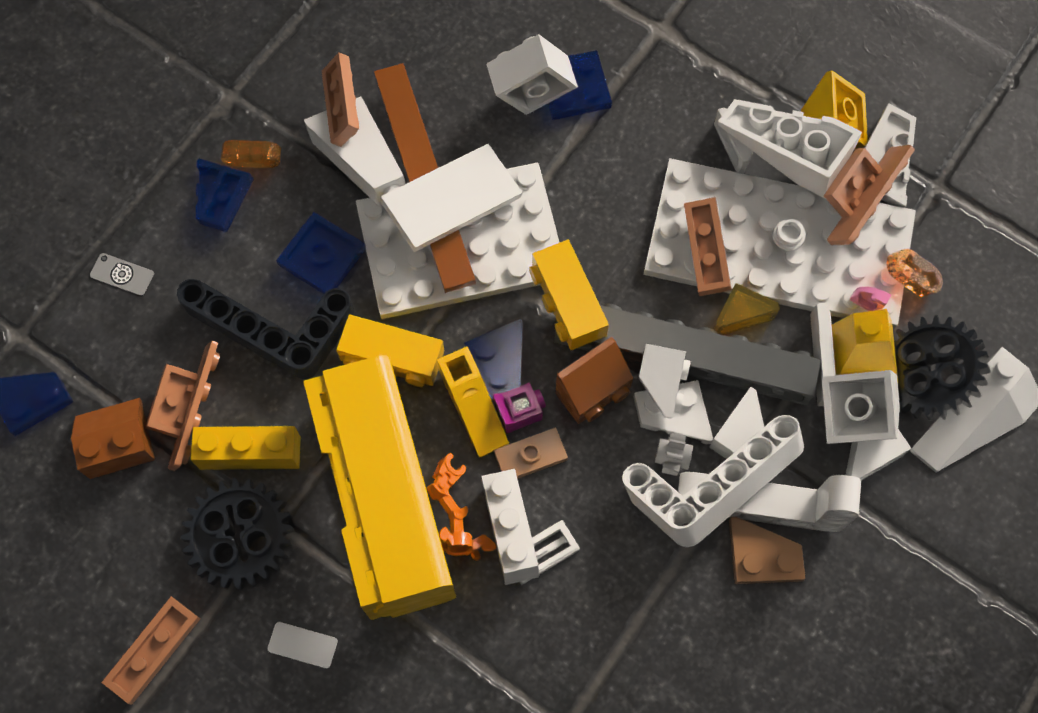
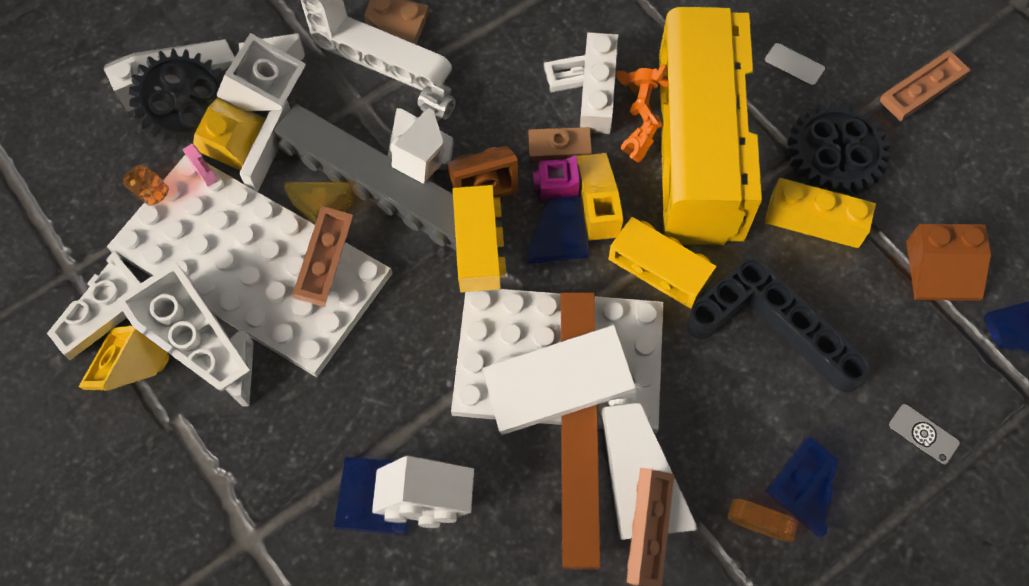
camera: 160 degrees left, 5 degrees down
(178, 401) = (877, 274): nougat bracket -> none
(321, 254) = (708, 381): clear blue plate -> none
(717, 486) = (414, 49): white beam -> none
(740, 426) = (370, 105): white slope -> none
(789, 234) = (239, 247): white plate -> none
(861, 188) = (141, 259): nougat bracket -> none

